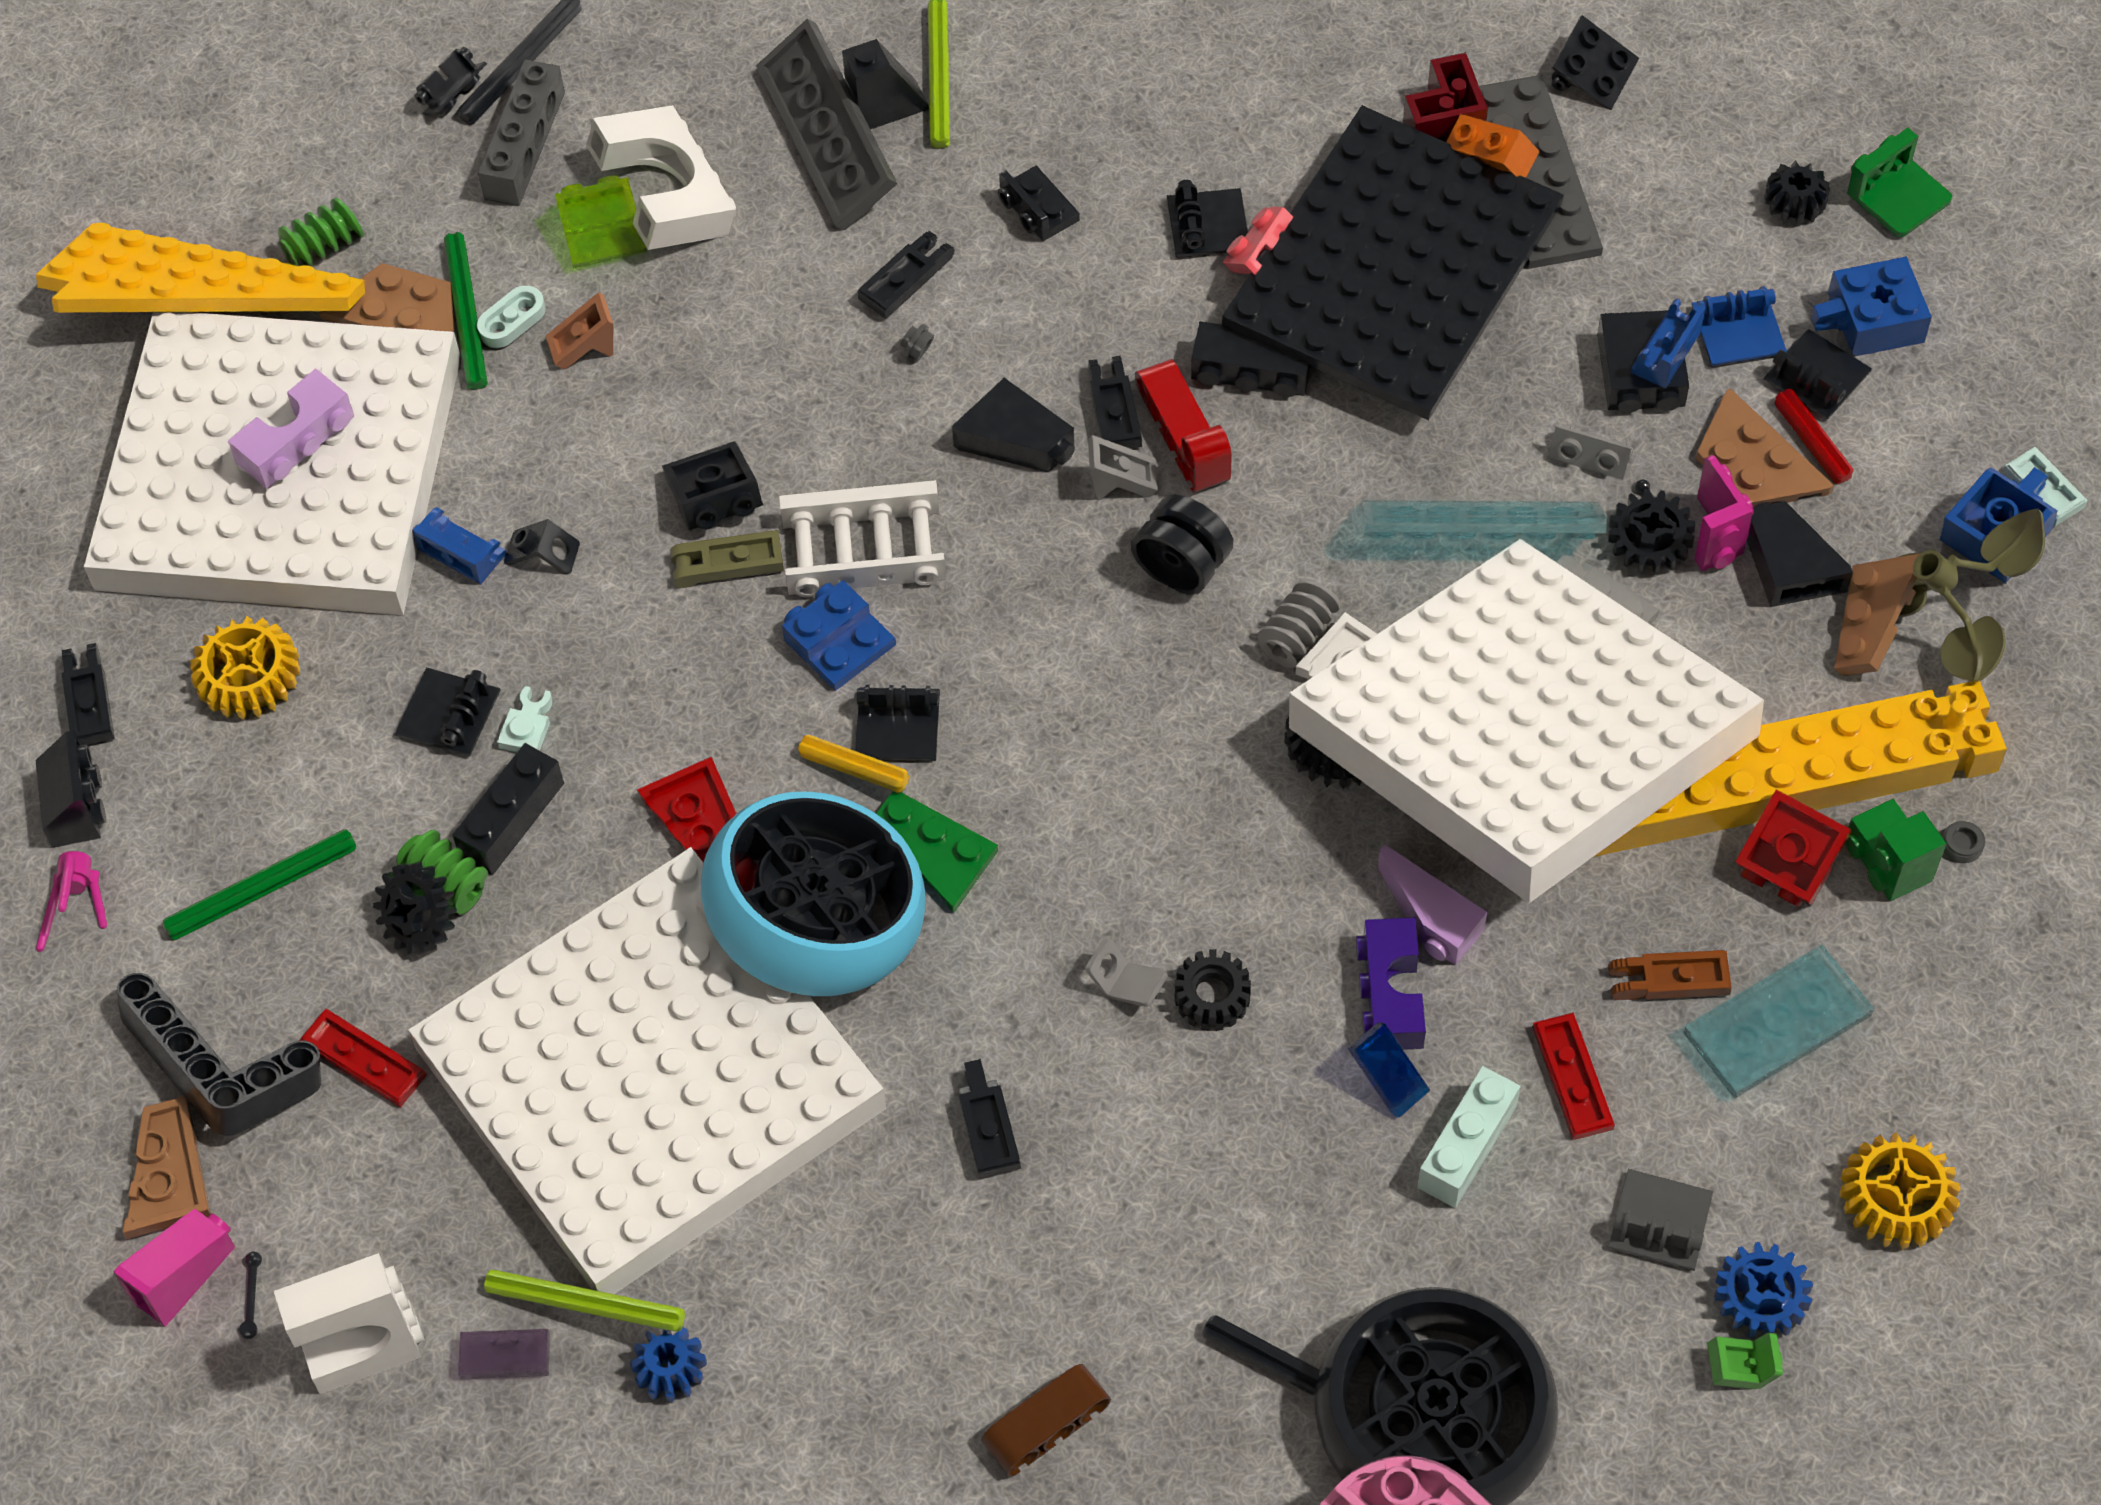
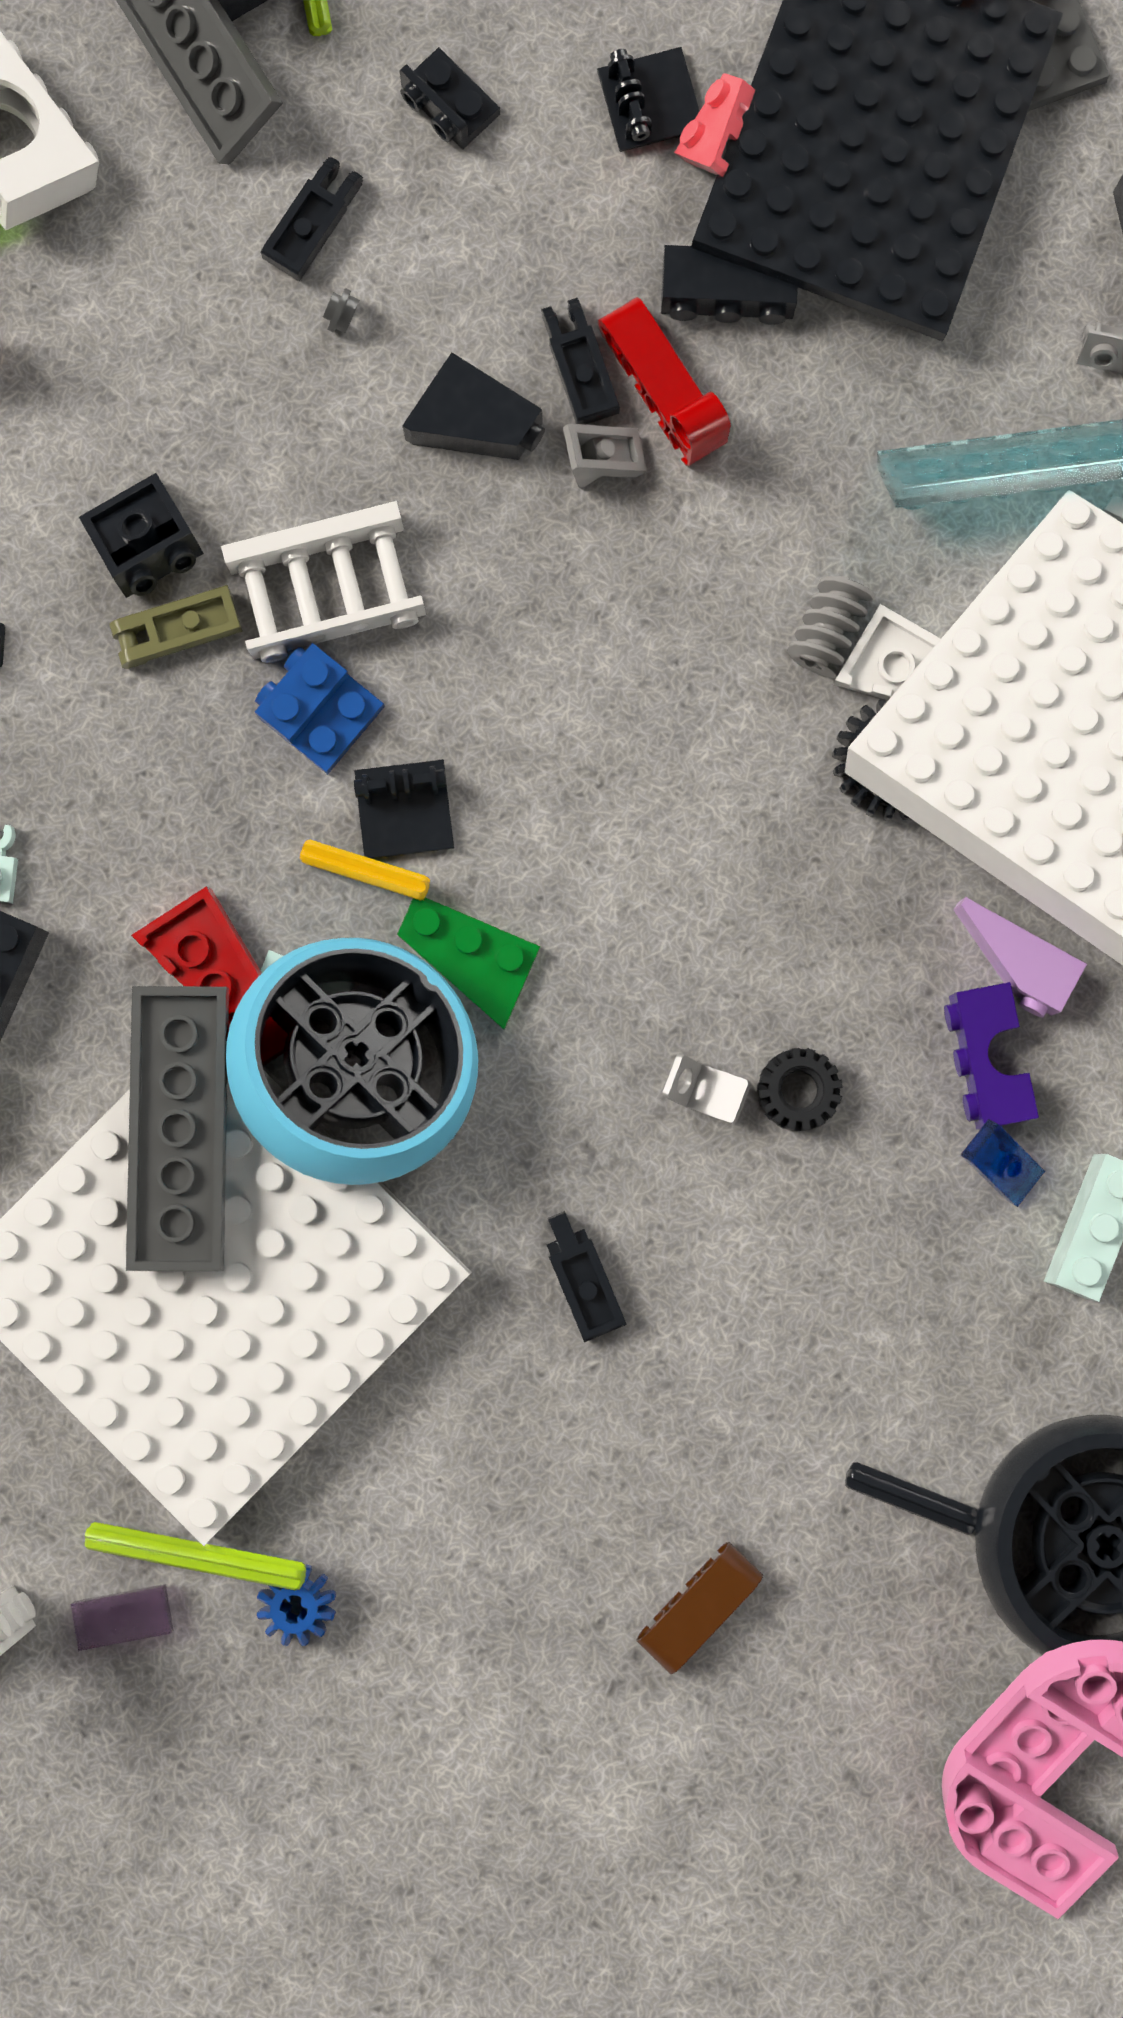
camera: 10 degrees left, 25 degrees up
(647, 927) = (177, 1129): none -> dark grey plate
(1182, 544) = (689, 547): black wheel -> none

